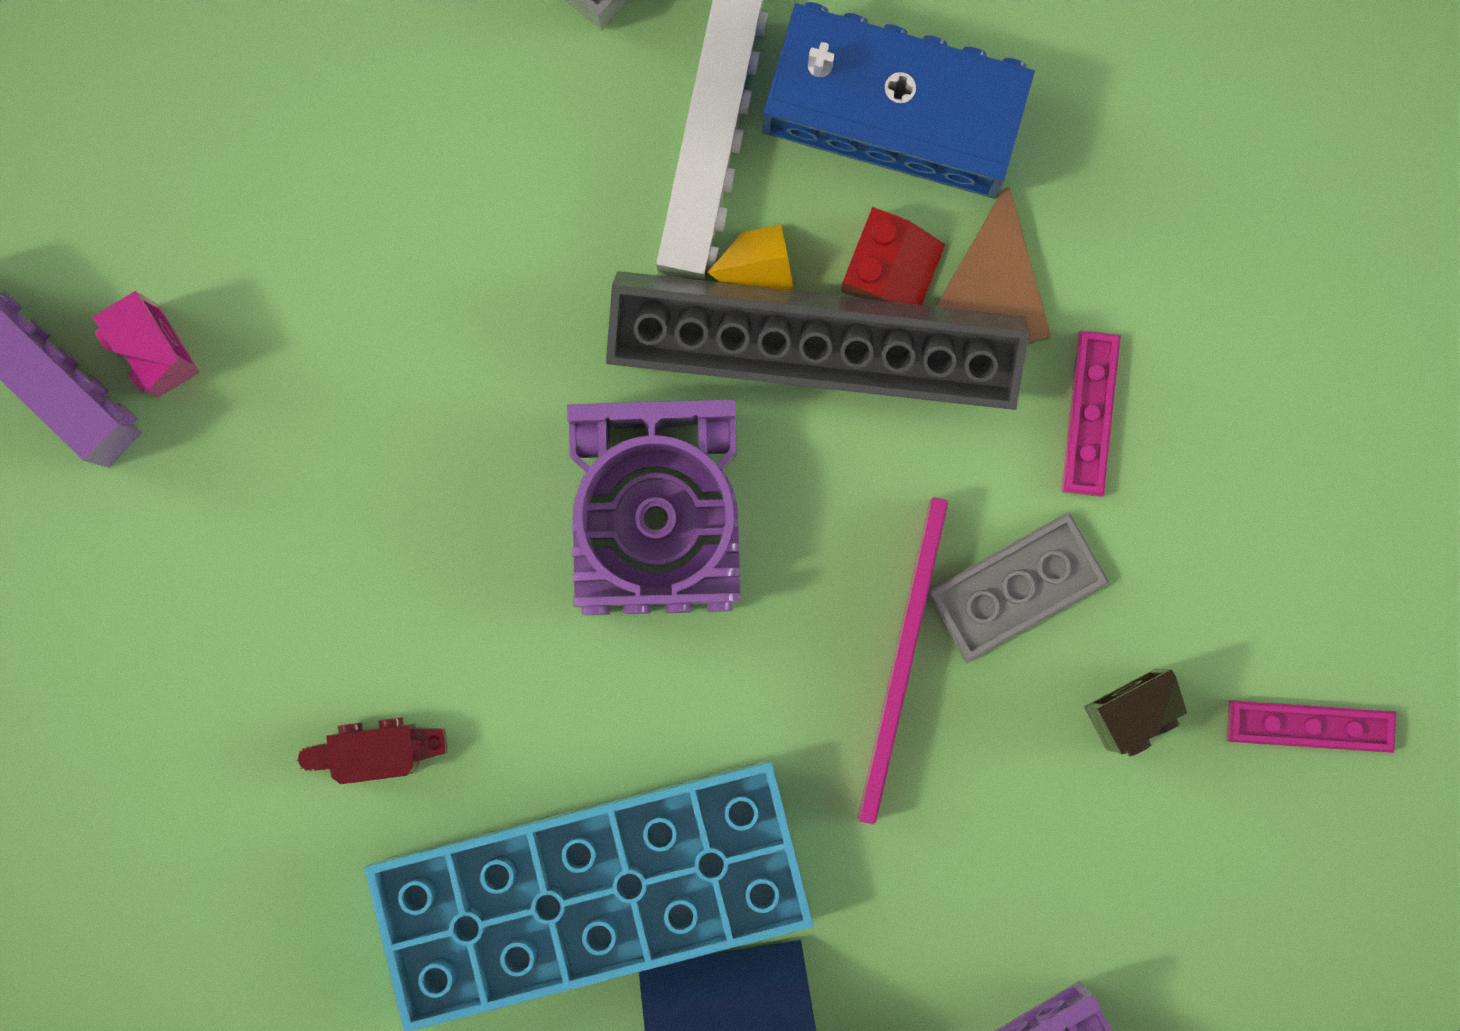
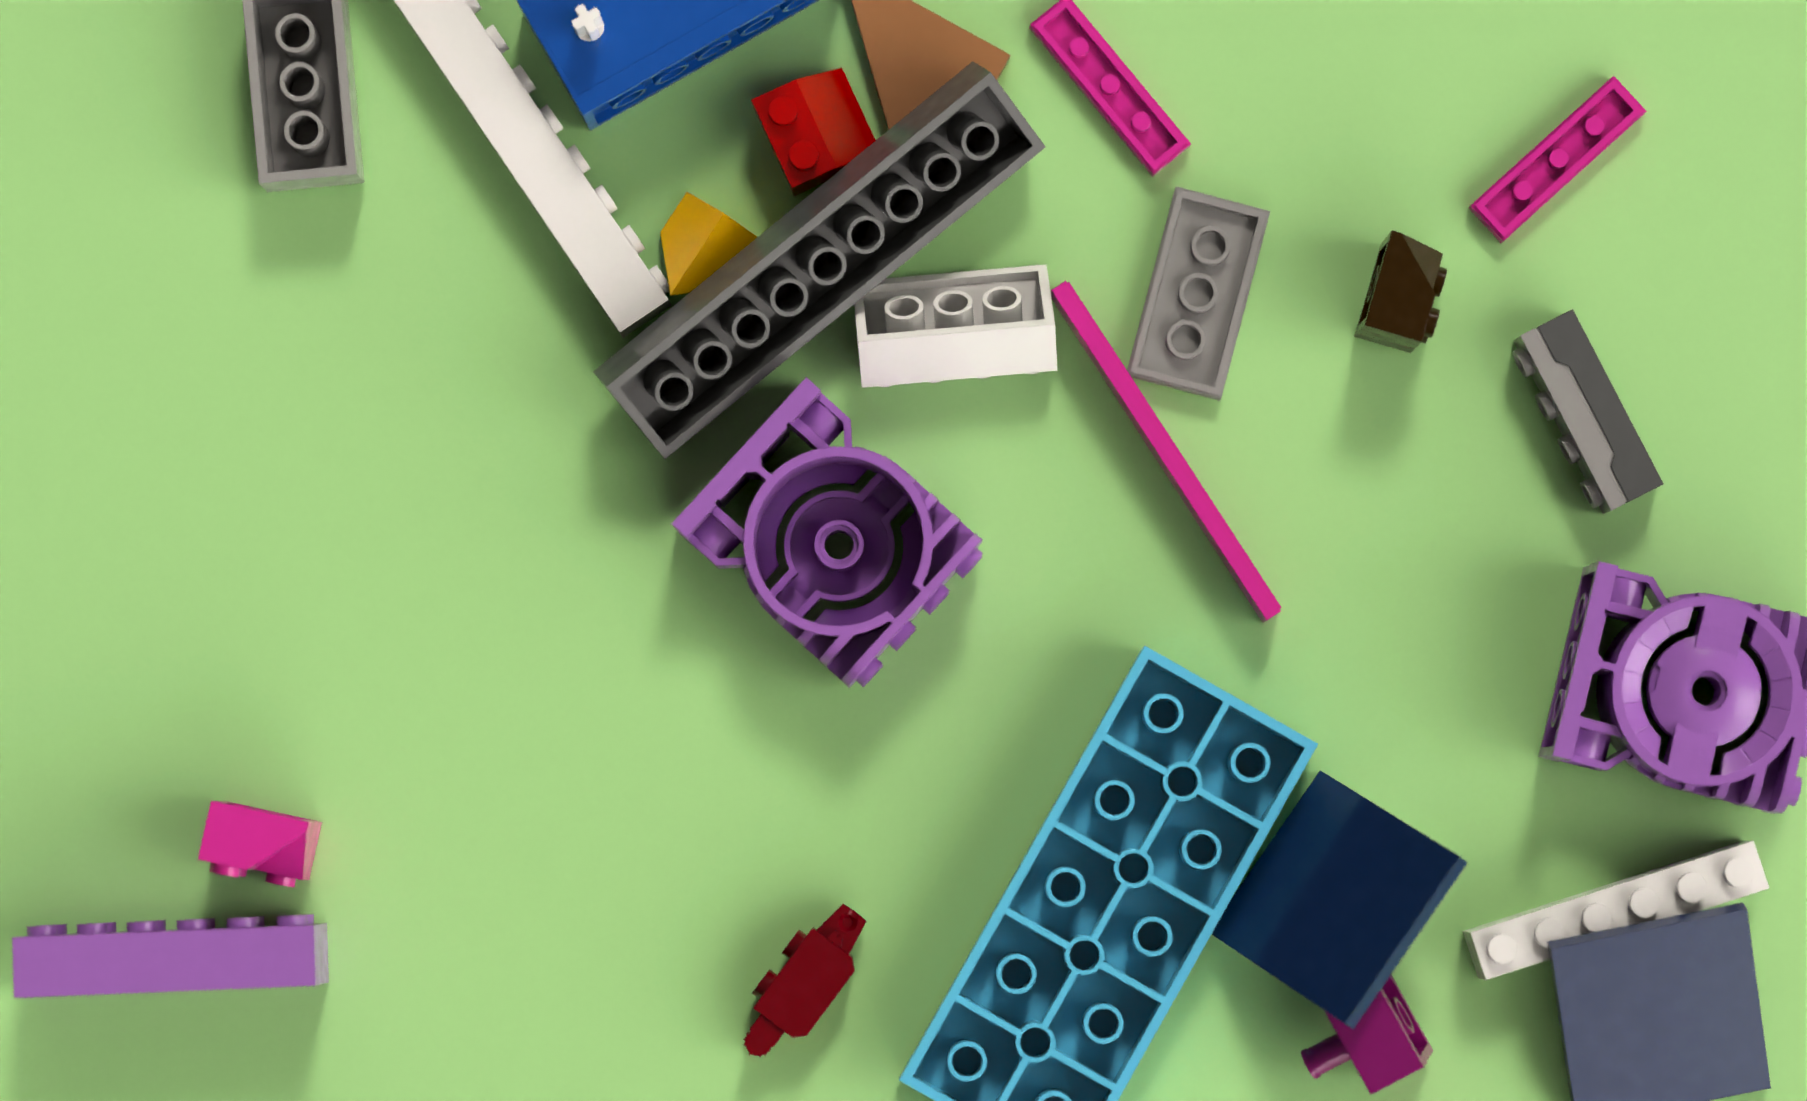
camera: 50 degrees left, 0 degrees up
(855, 461) = (956, 326): none -> white slope
(1175, 894) = (1587, 412): none -> piece

